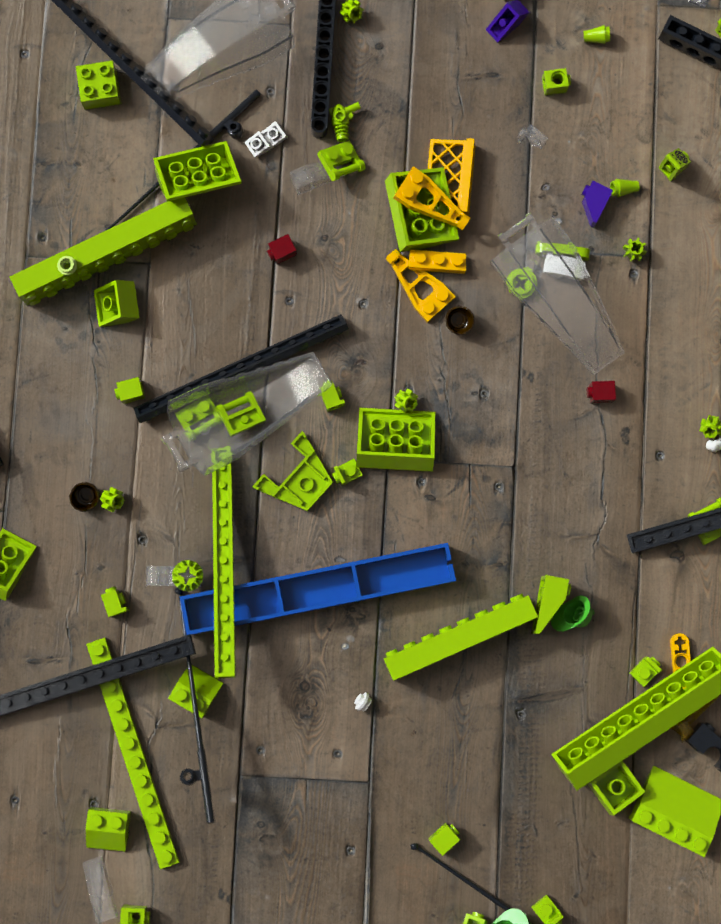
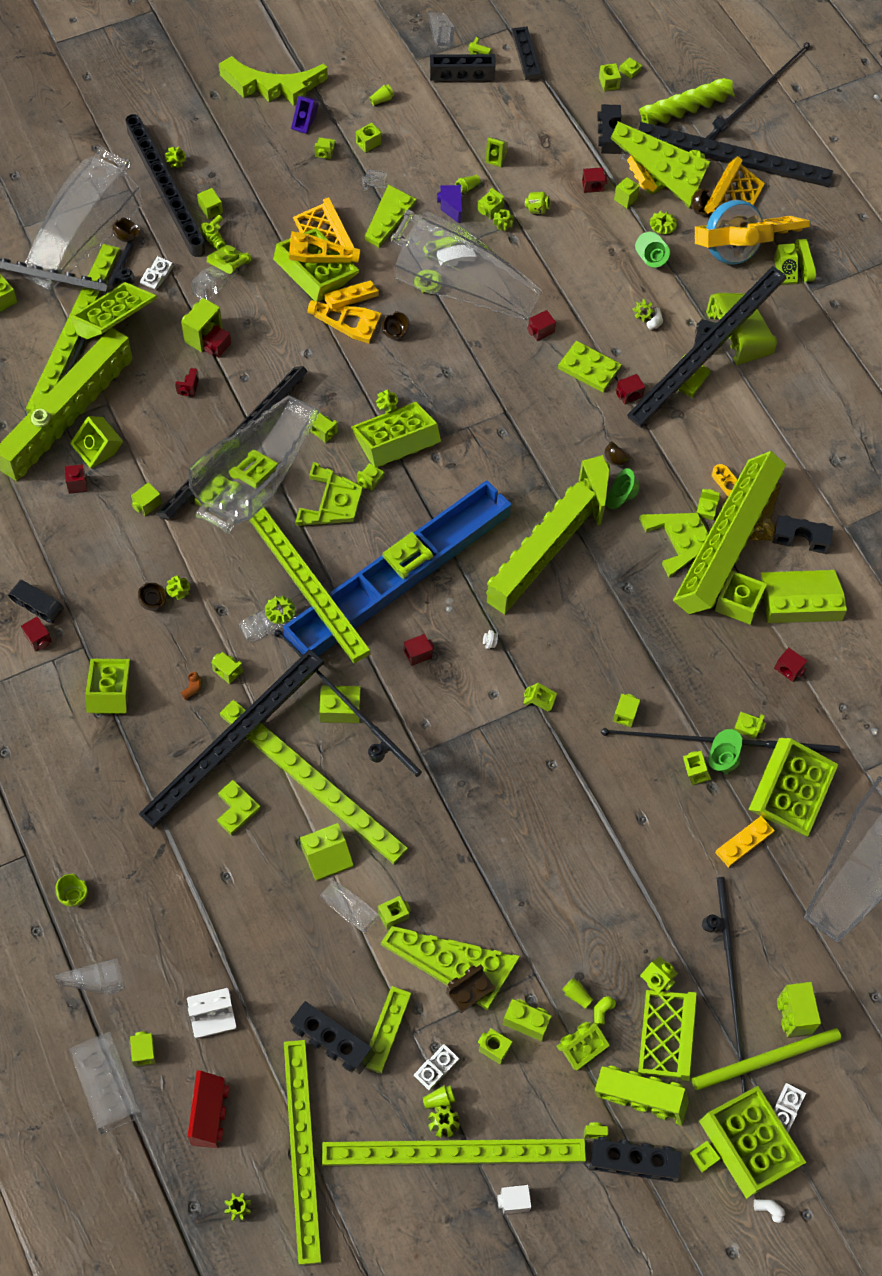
camera: 30 degrees left, 20 degrees down
(59, 744) = (241, 807): none -> lime plate
(77, 335) = (75, 478): none -> dark red brick
(78, 604) = (194, 685): none -> dark orange arm
(146, 173) = (68, 338): none -> lime plate
(235, 283) = (190, 385): none -> dark red bracket
(259, 75) = (125, 230): none -> dark brown hair
(274, 225) = (200, 322): none -> lime brick
(293, 677) = (418, 649): none -> dark red brick
(329, 578) = (405, 550): none -> lime plate
(357, 83) = (210, 203): none -> lime brick
(374, 782) = (540, 696): none -> lime bracket
(505, 71) = (324, 148): none -> lime bracket
(527, 183) = (388, 215): none -> lime wing
(590, 573) = (616, 455): none -> dark brown hair
(607, 689) = (685, 533): none -> lime wing
(621, 876) = (791, 664): none -> dark red brick
(623, 460) = (589, 366): none -> lime plate
(627, 229) = (491, 203): none -> lime brick
(646, 508) = (630, 389): none -> dark red brick
(680, 247) = (538, 202): none -> lime head

